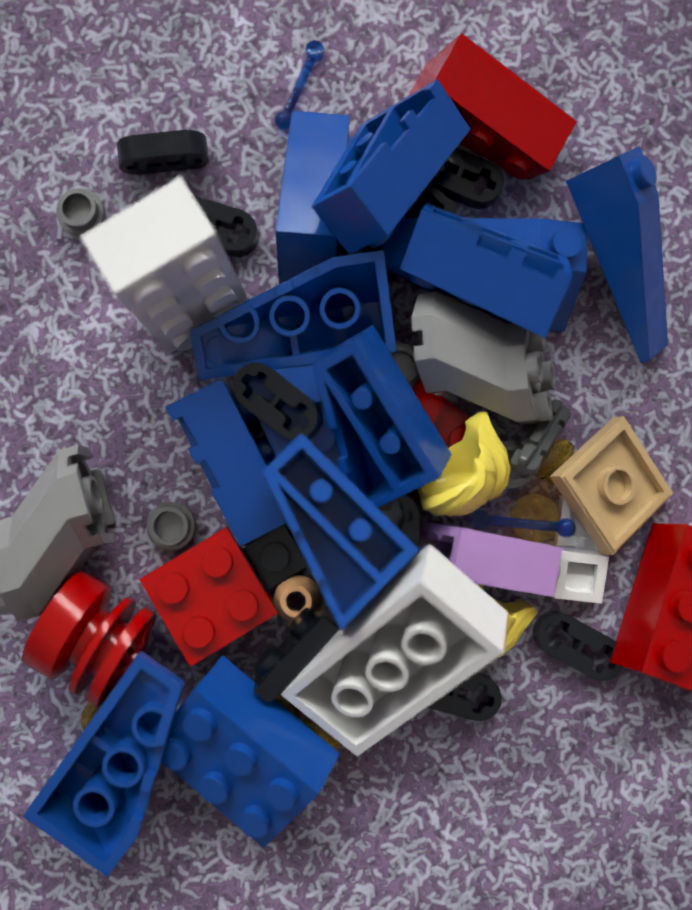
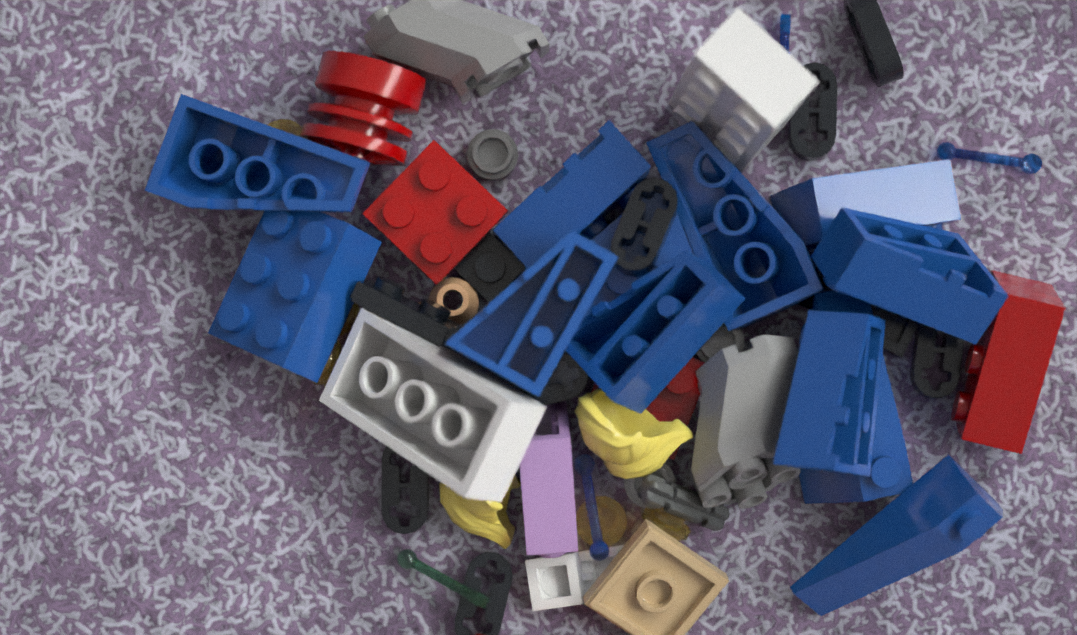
camera: 75 degrees right, 0 degrees up
(523, 704) = (408, 559): none -> clear green hinge

